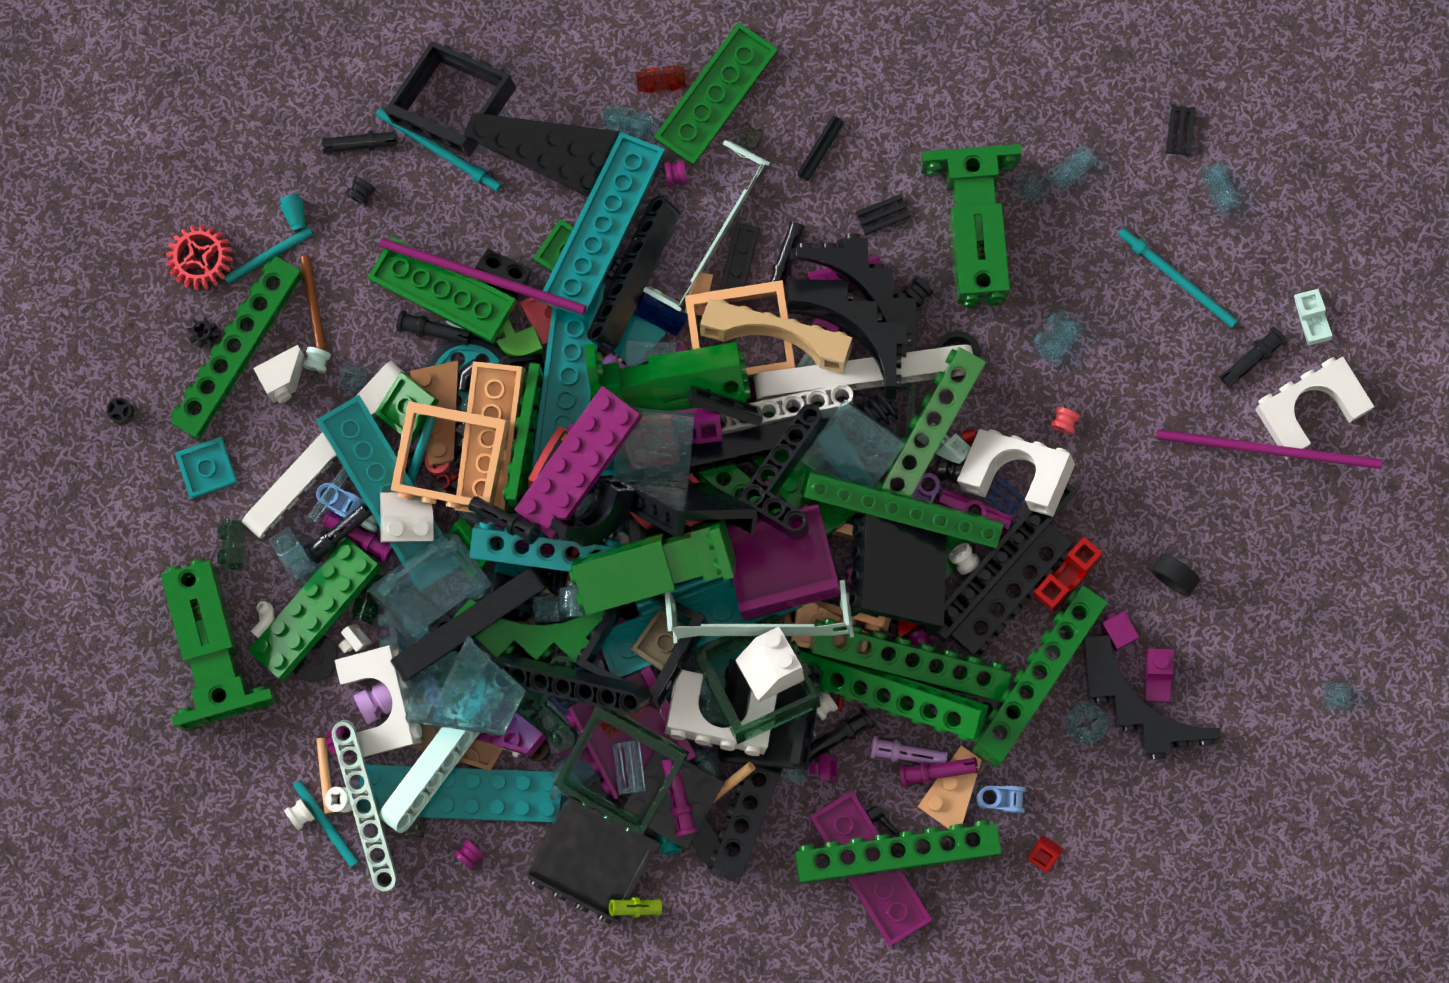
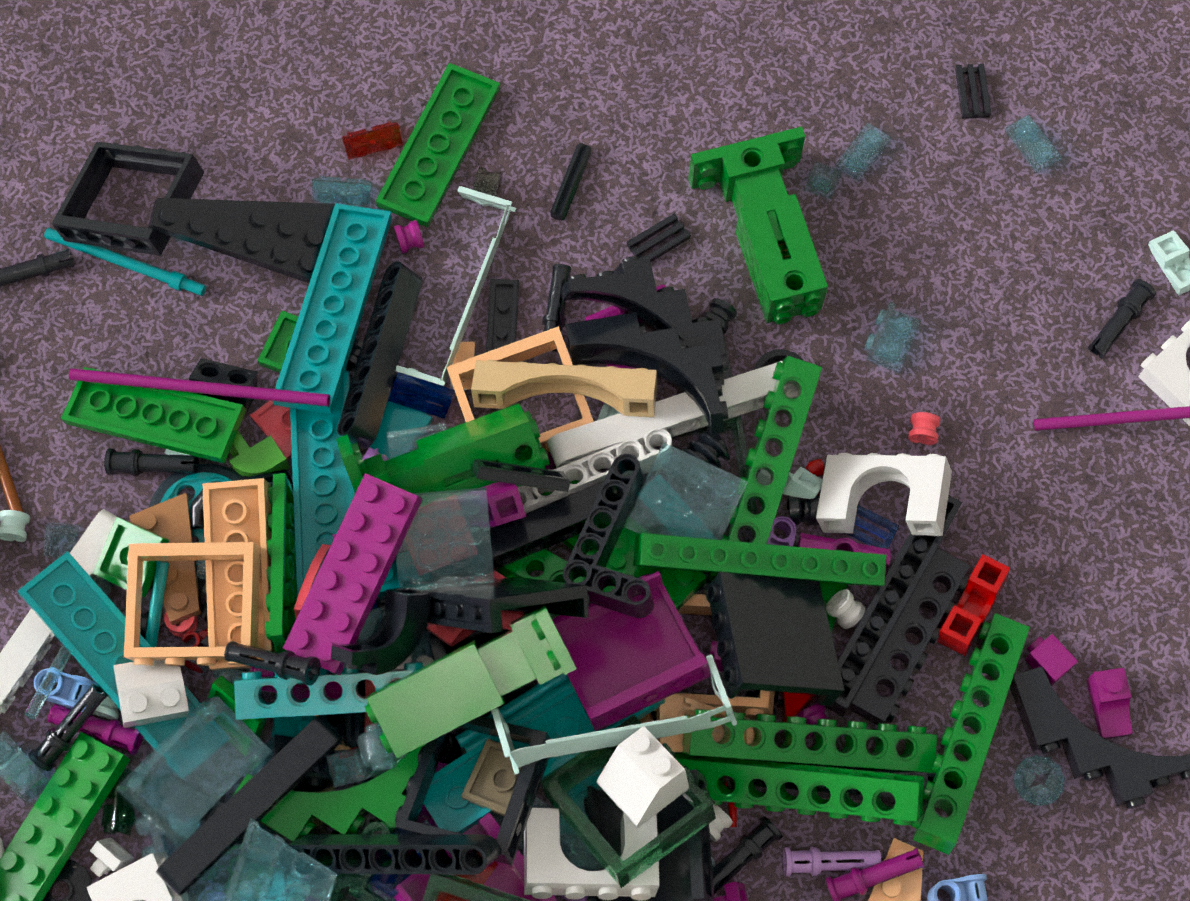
camera: 15 degrees left, 10 degrees down
(360, 191) = (38, 322): black wheel -> none
(1140, 247) = (960, 222): teal bar -> none
(1175, 574) = (1101, 579): black tyre -> none

